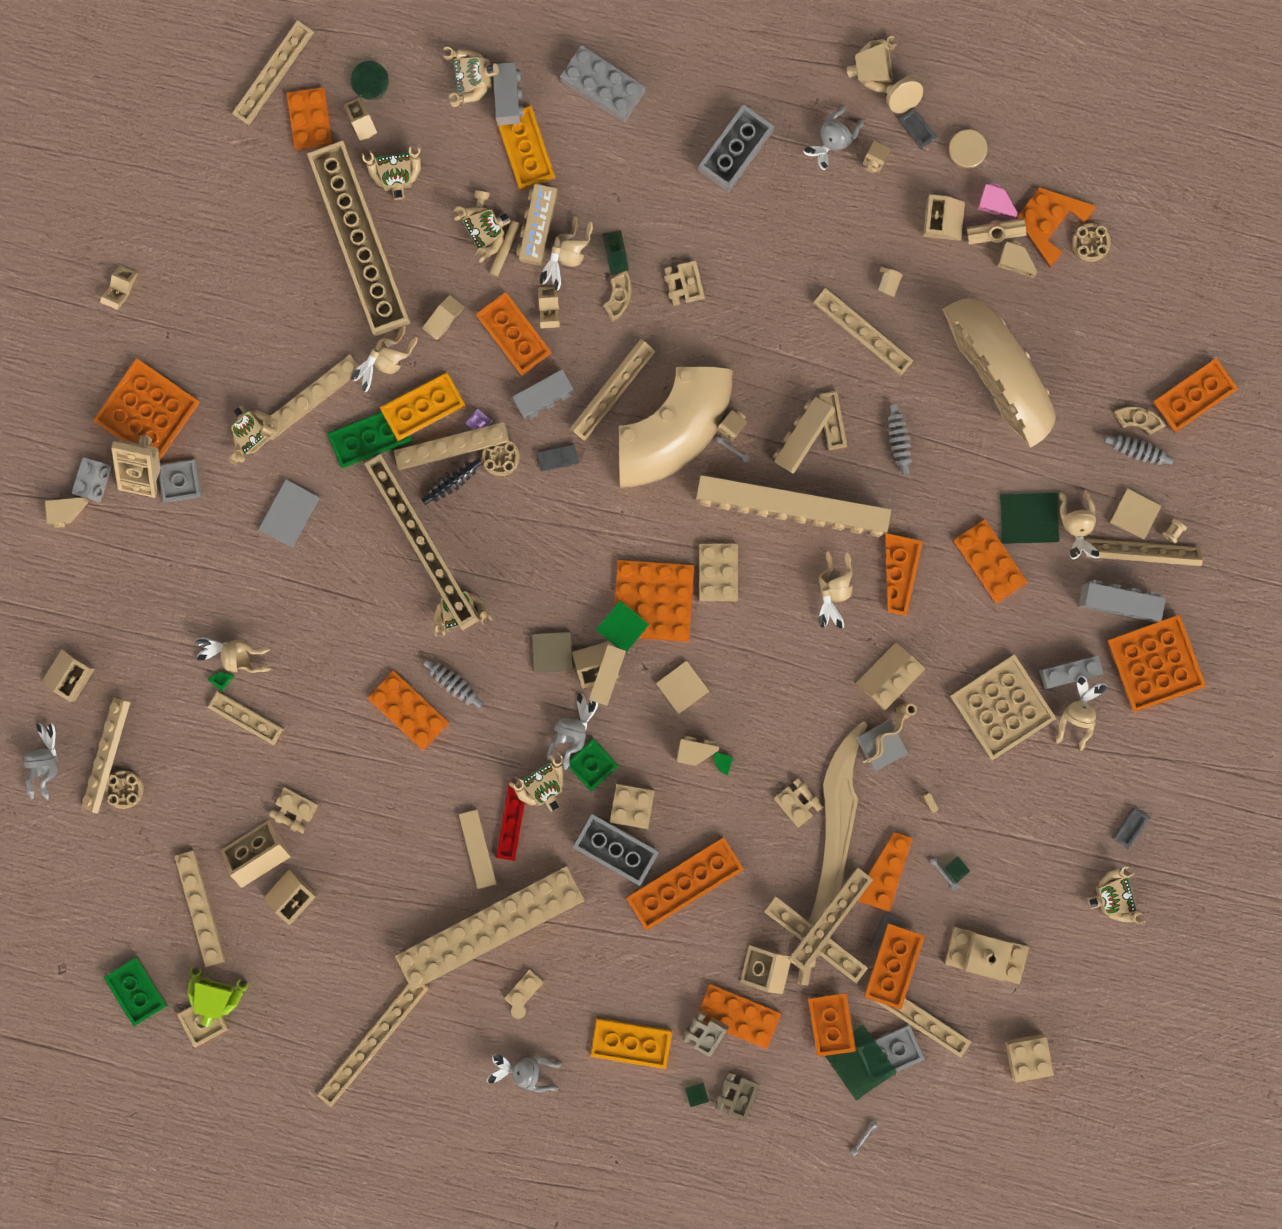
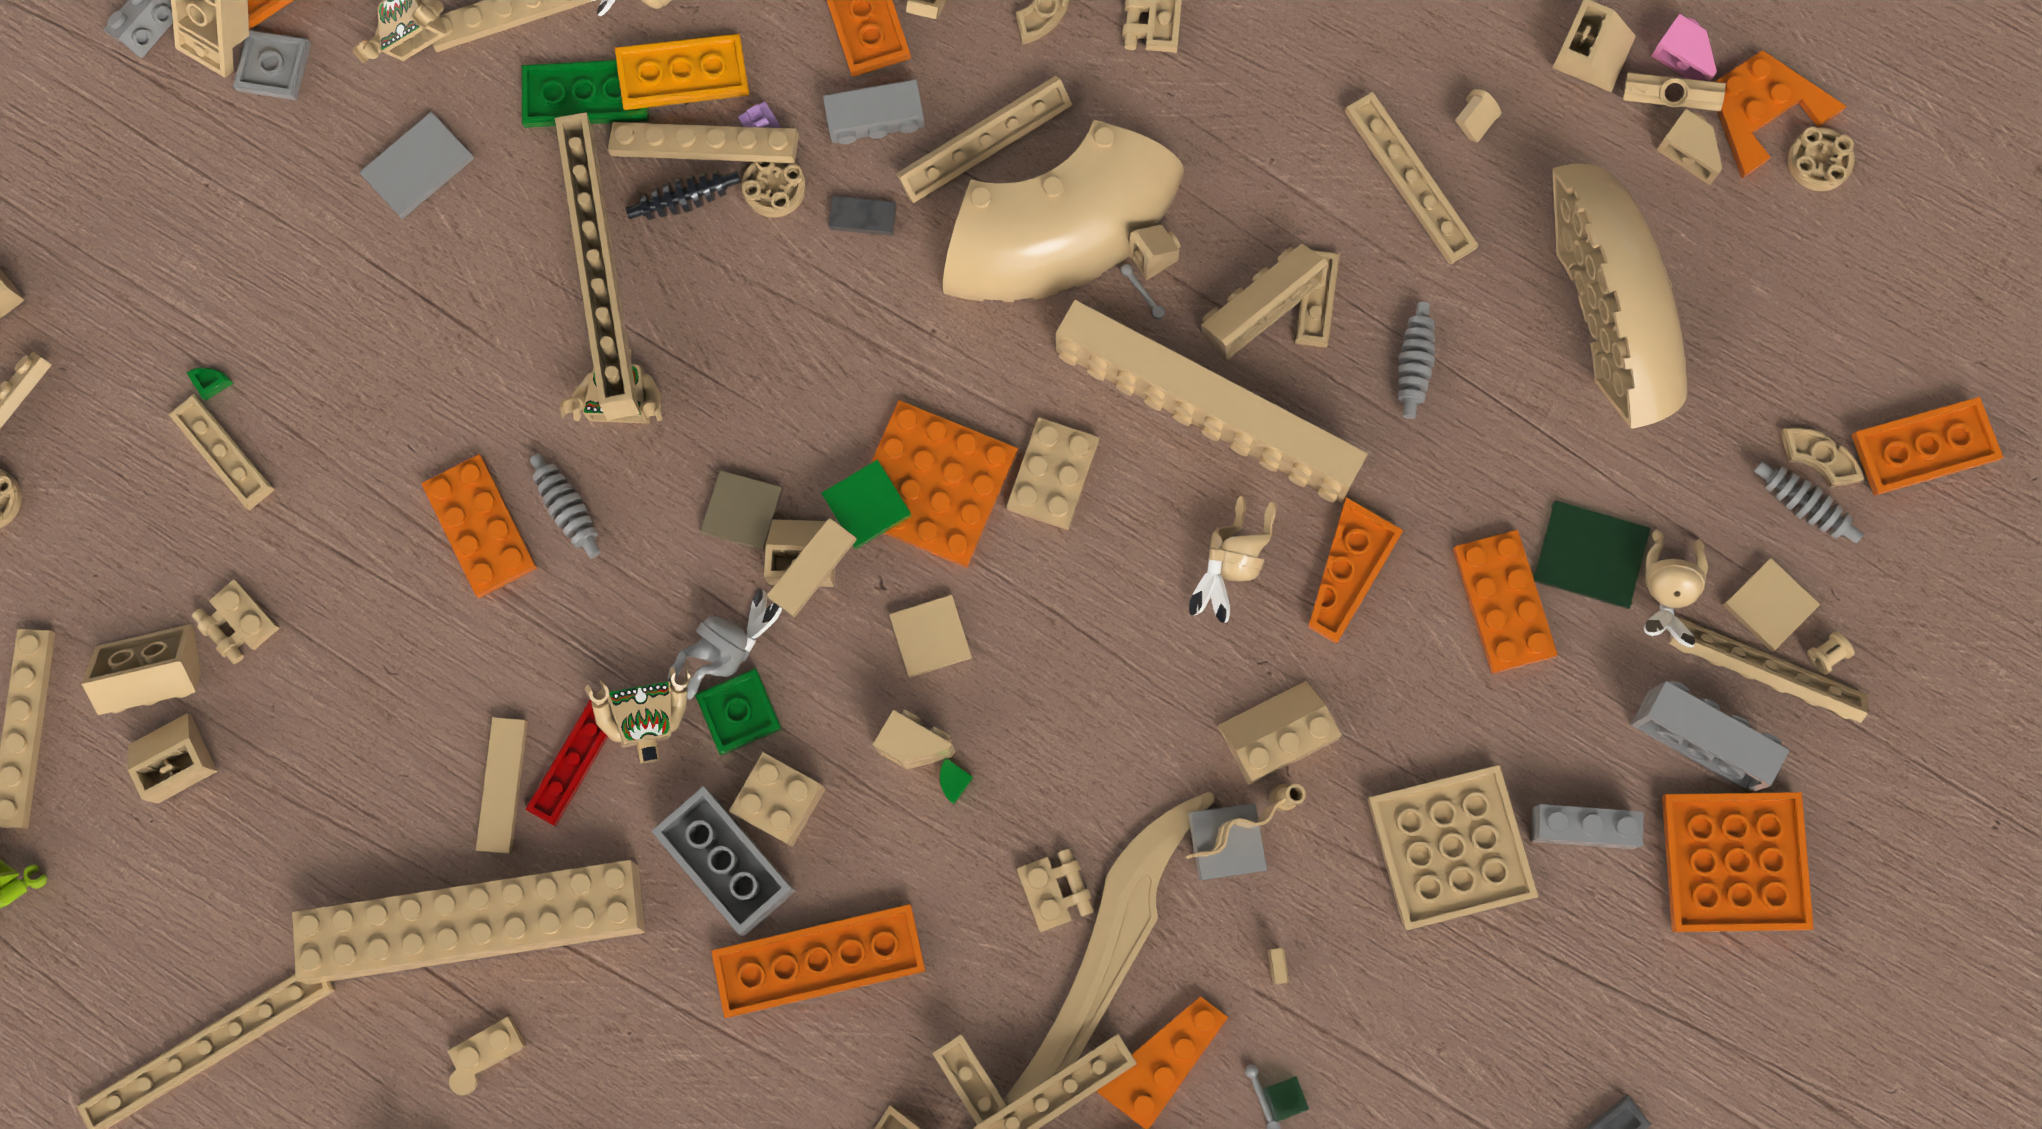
camera: 25 degrees right, 10 degrees down
(63, 511) = (80, 49): tan slope -> none
(232, 654) = (237, 344): tan hair -> none
(1080, 712) = (1584, 897): tan hair -> none

